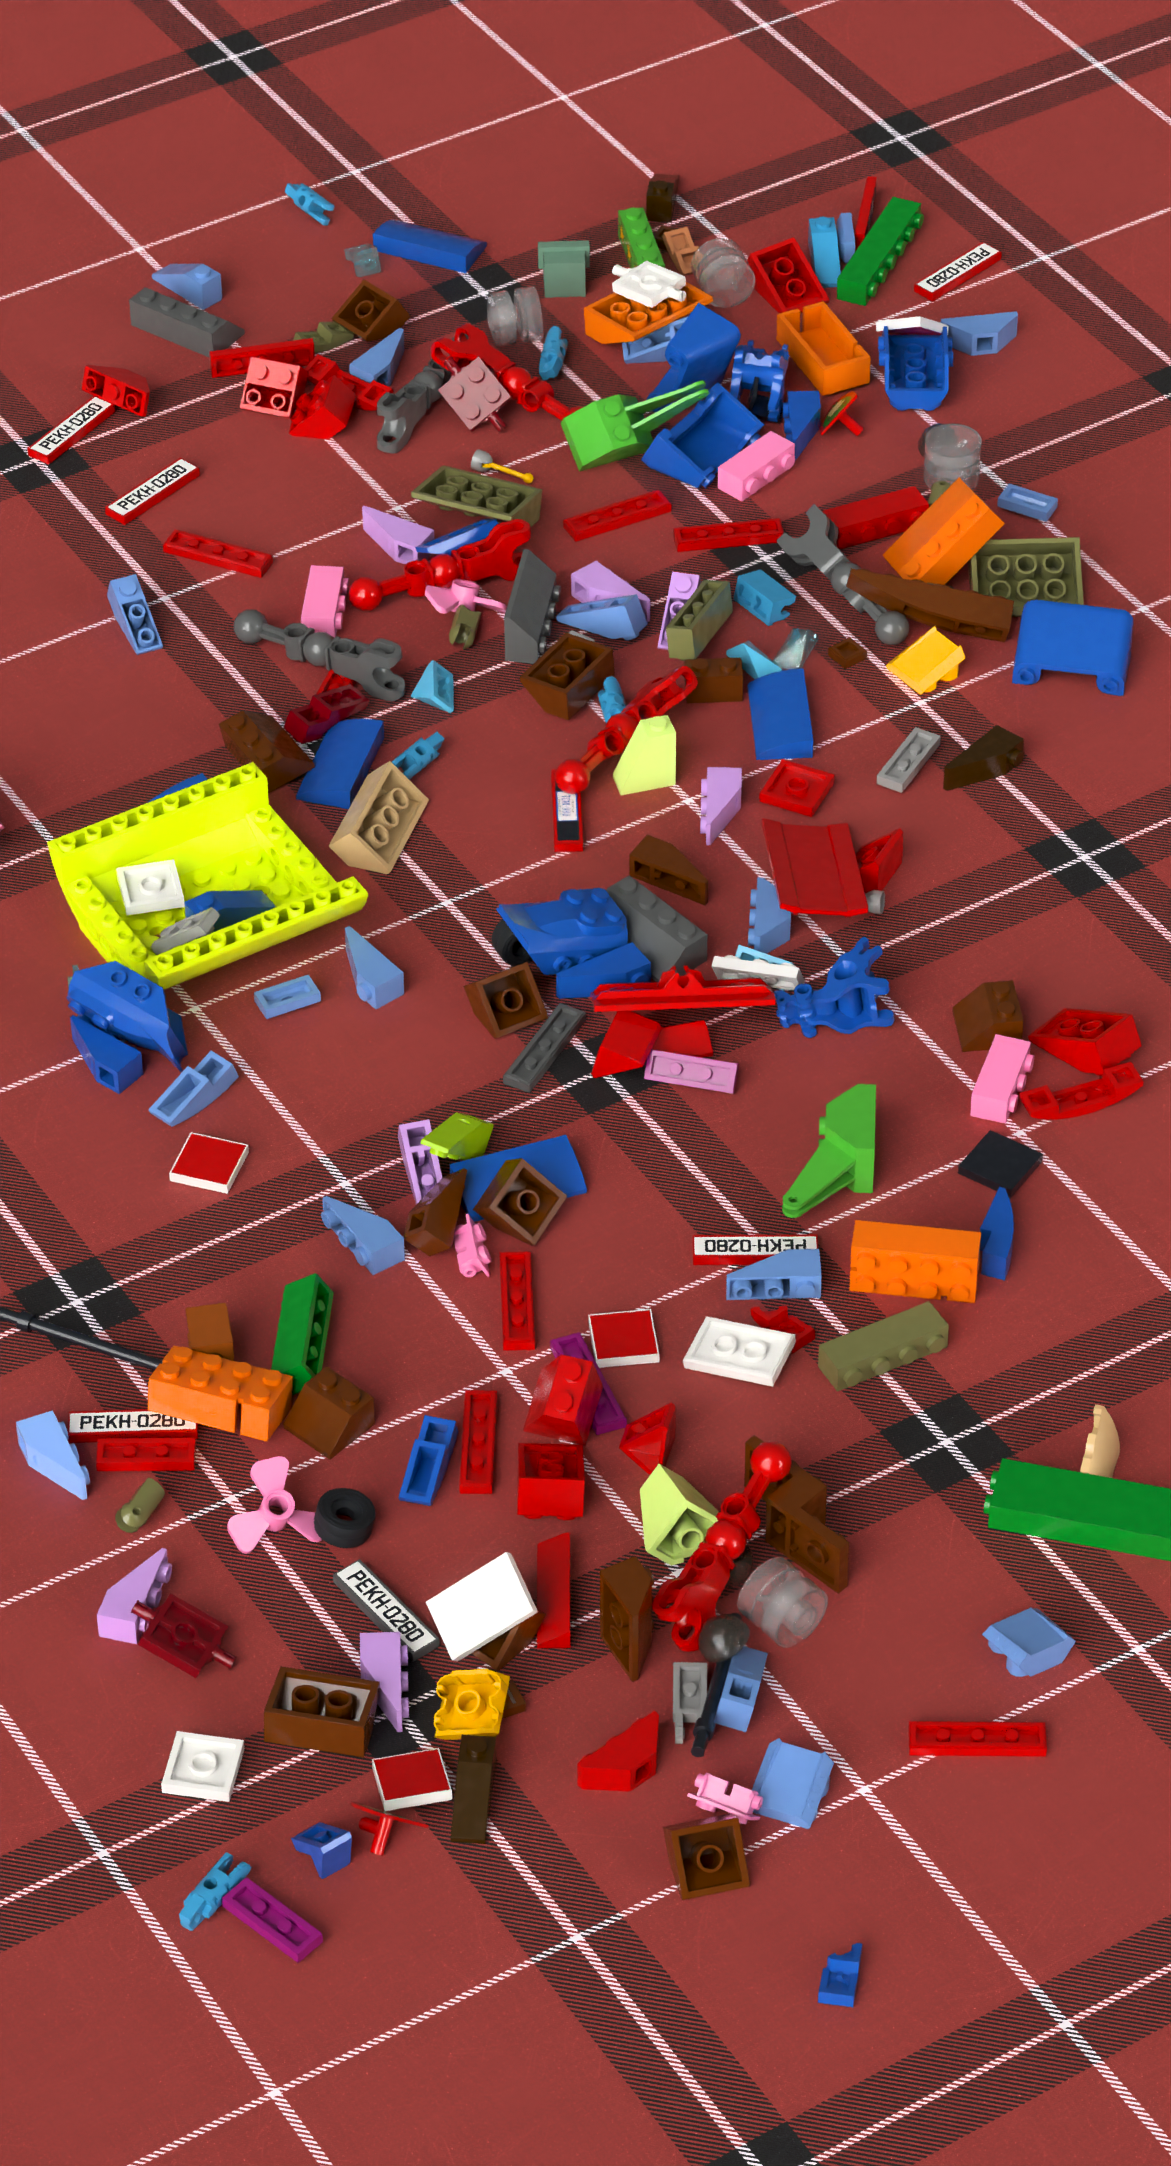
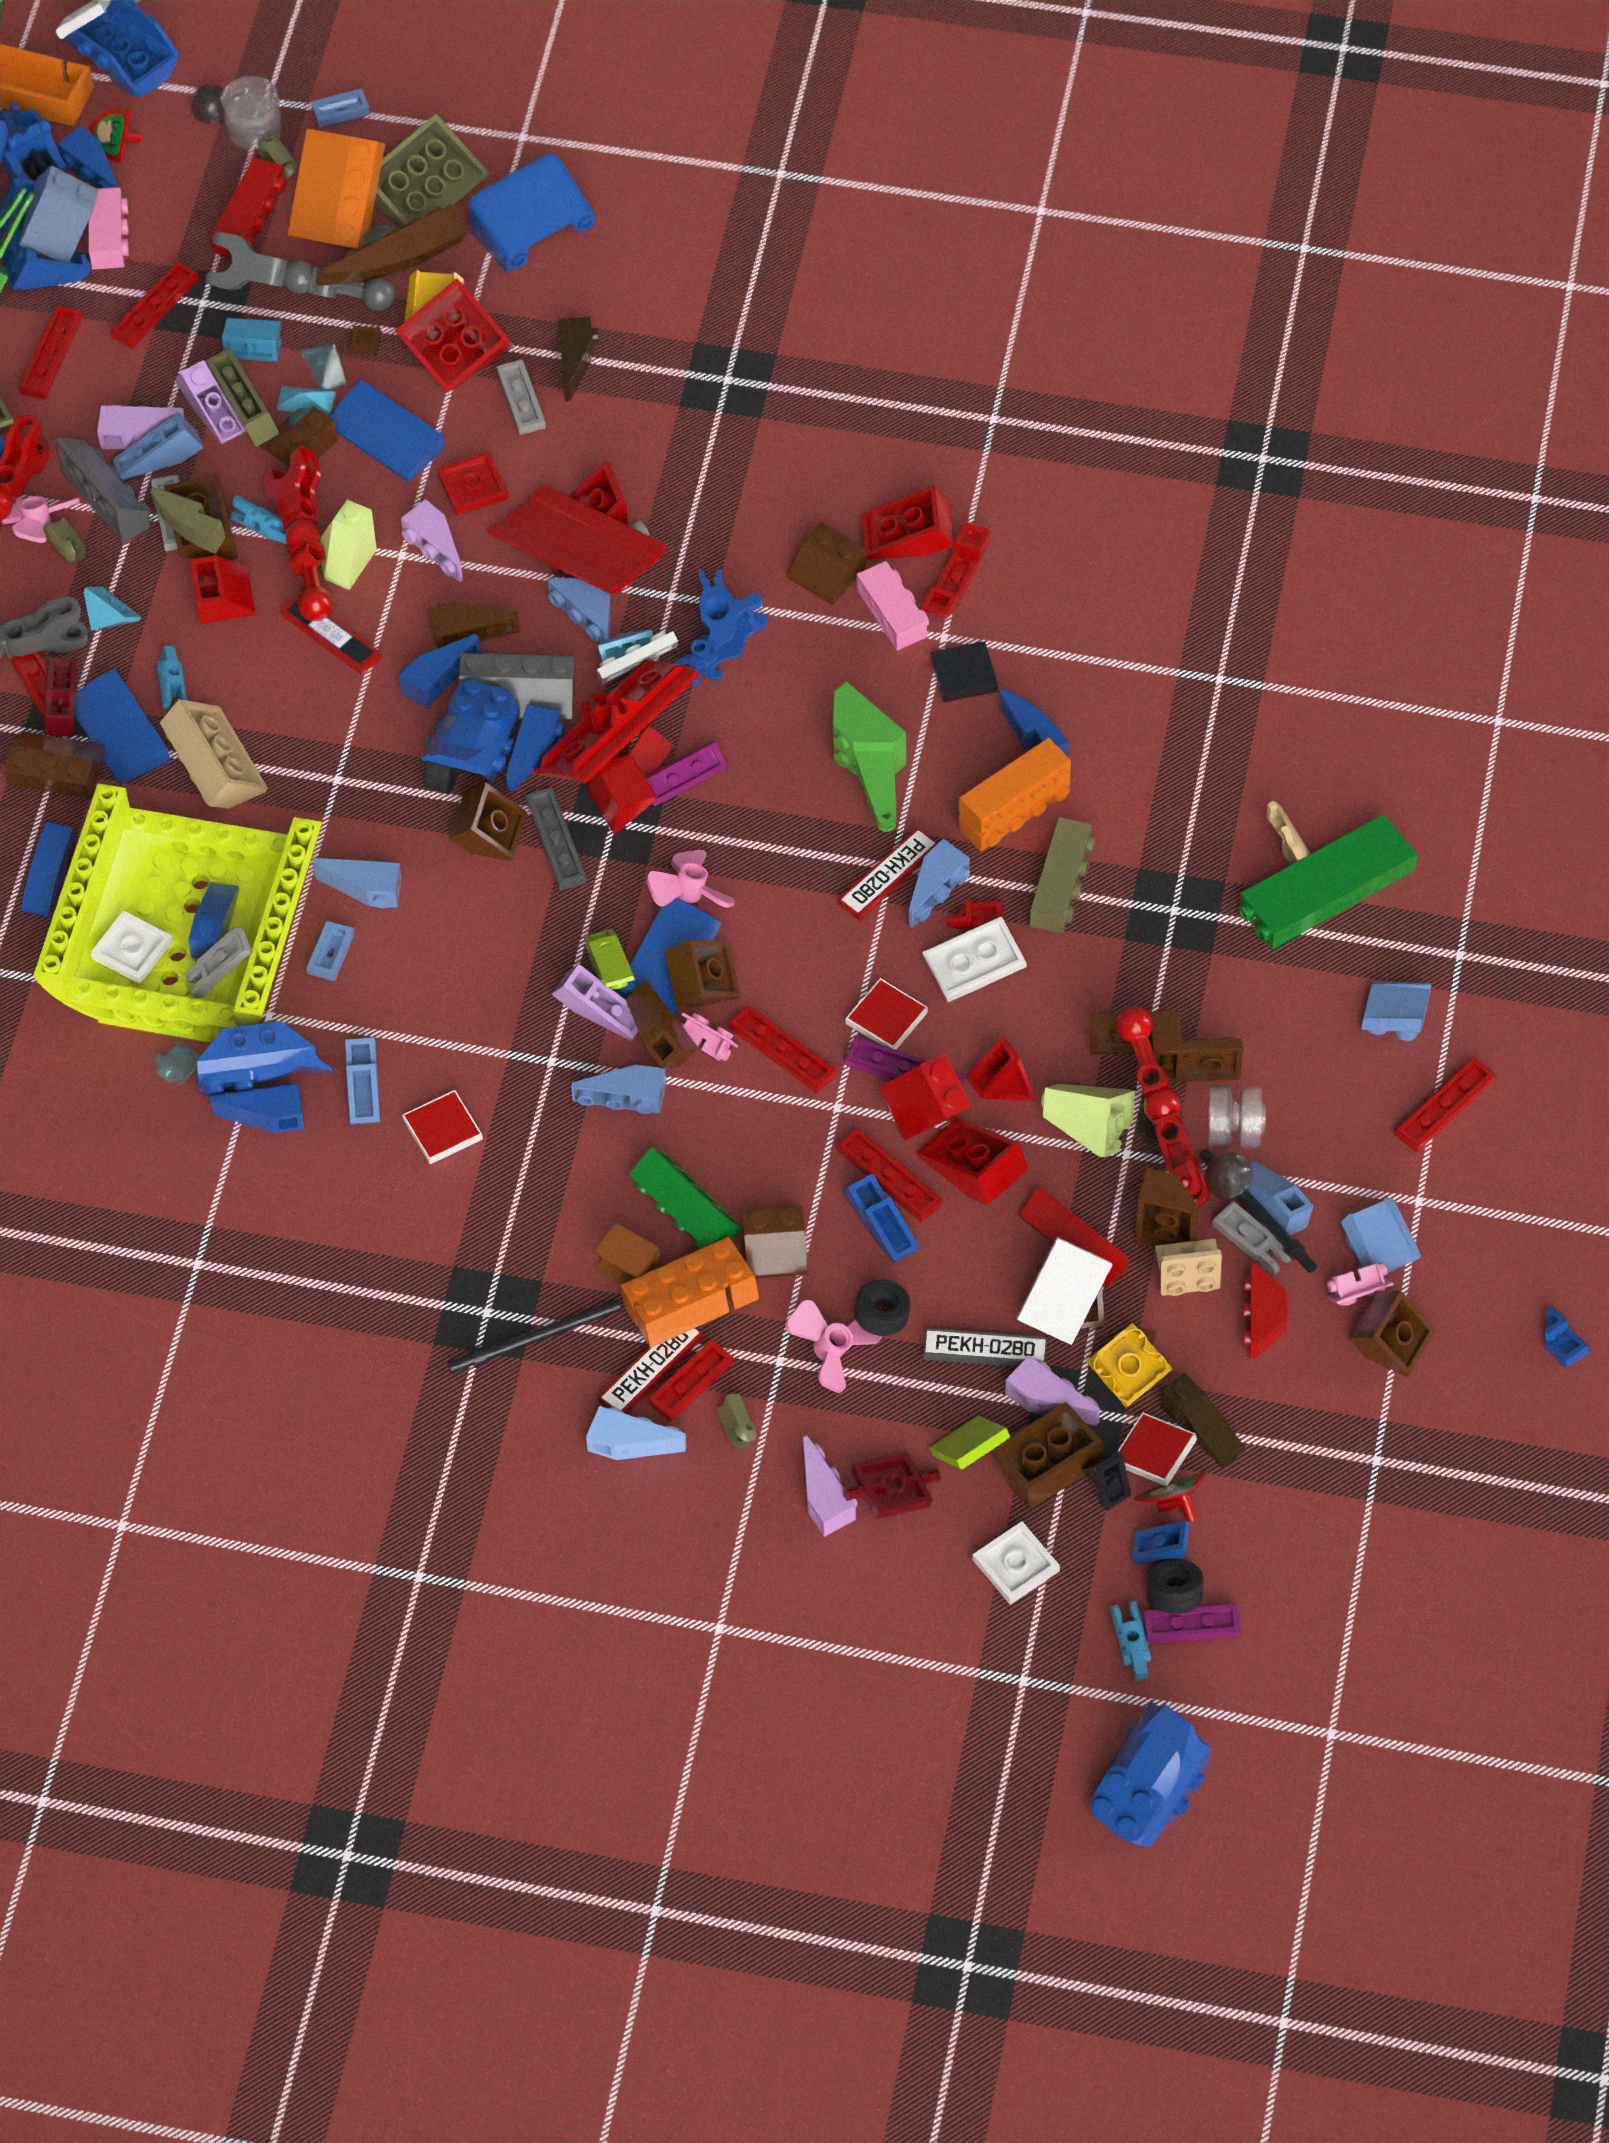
camera: 45 degrees left, 15 degrees up
(76, 1989) = (1151, 1776): none -> blue slope
(277, 1654) = (970, 1442): none -> lime tile
(291, 1879) = (1175, 1573): none -> black tyre
(342, 1765) = (1110, 1479): none -> black slope
(523, 725) = (221, 589): none -> red slope
(548, 658) = (189, 520): none -> olive slope
(591, 1138) = (688, 883): none -> bright pink piece
(602, 874) = (435, 671): none -> blue slope
(605, 1674) = (1189, 1267): none -> tan bracket
(719, 426) = (57, 215): none -> sand blue slope
(906, 684) = (454, 336): none -> red slope

